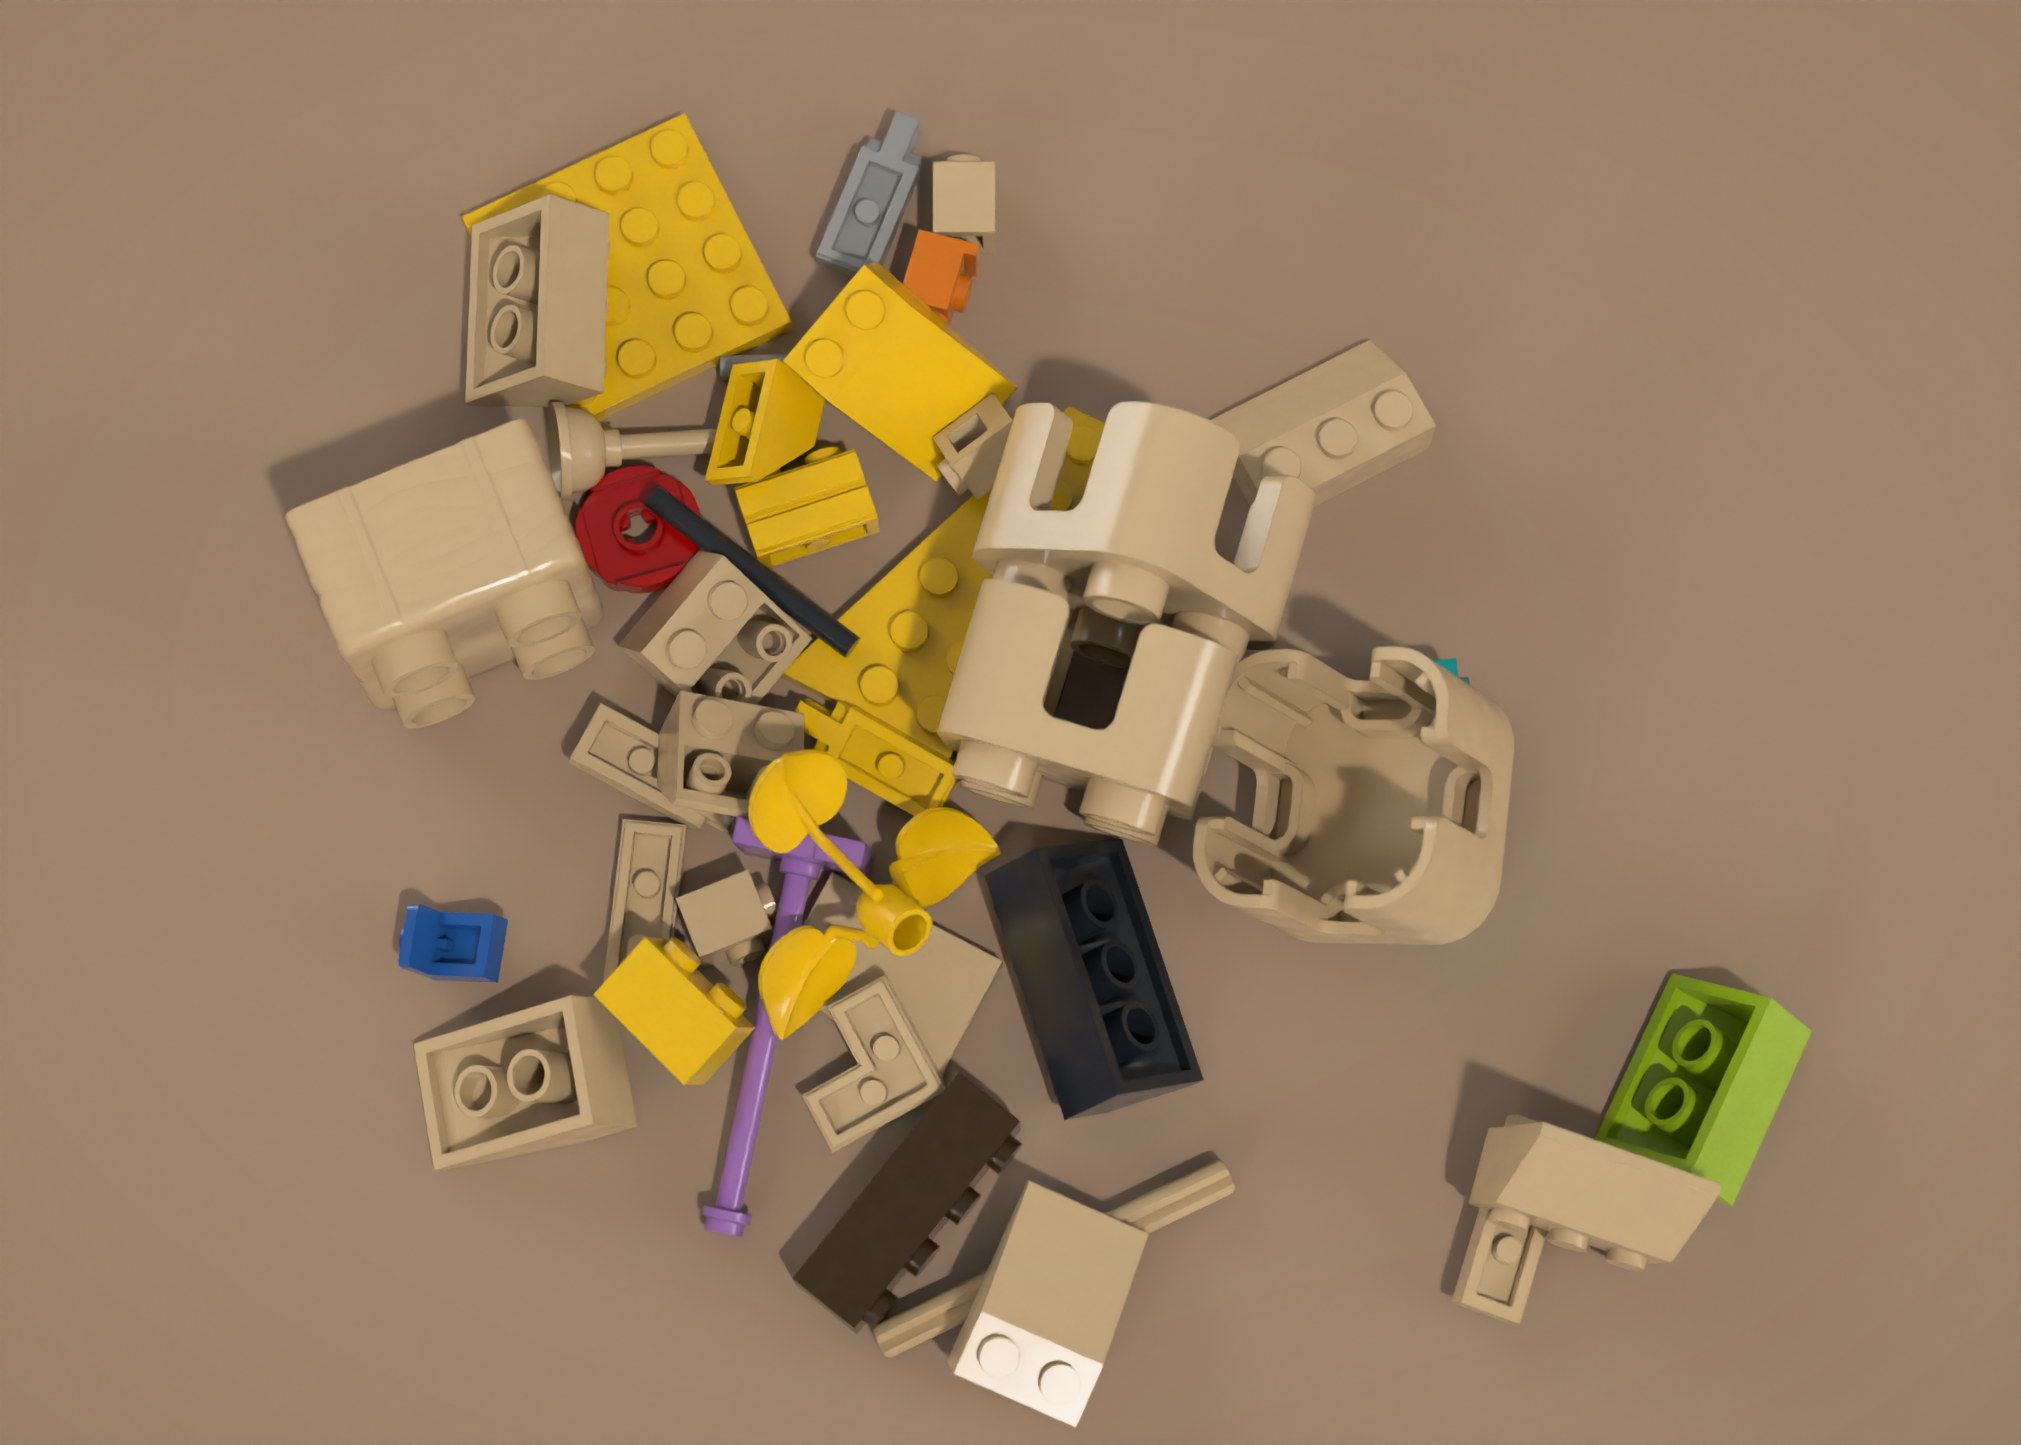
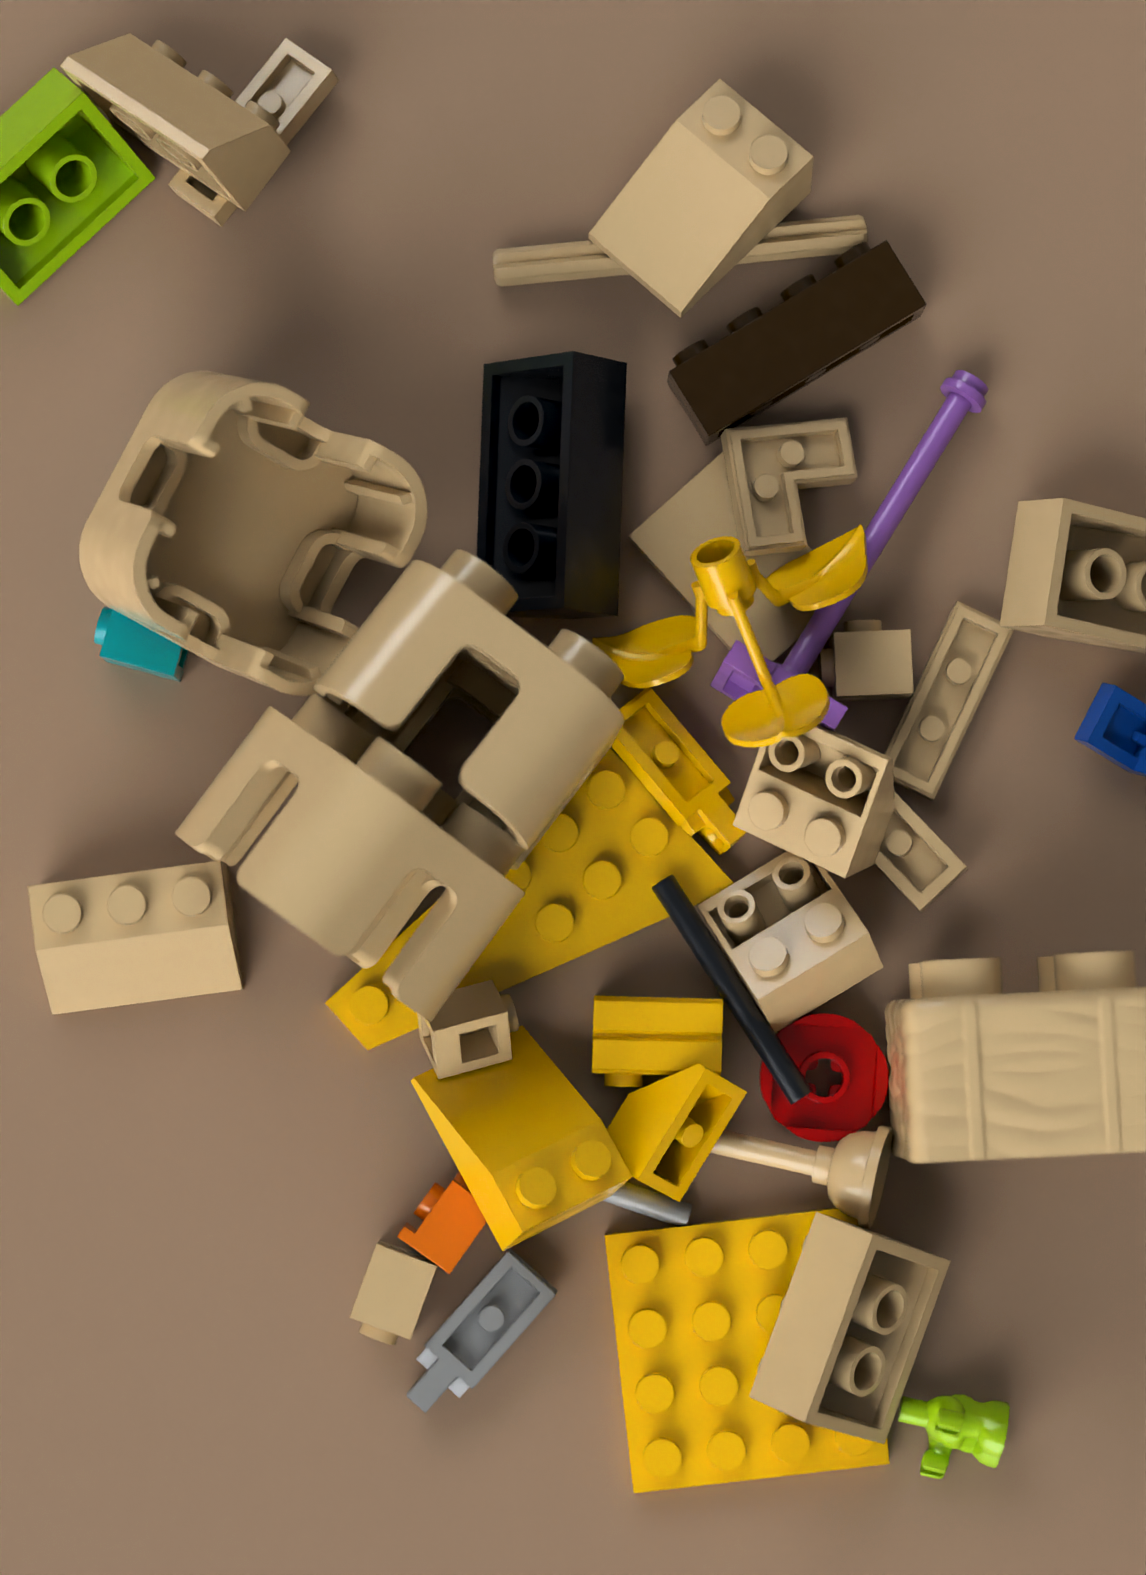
camera: 165 degrees left, 10 degrees up
(409, 271) = (960, 1425): none -> lime piece
(676, 1009) = (949, 585): yellow brick -> none

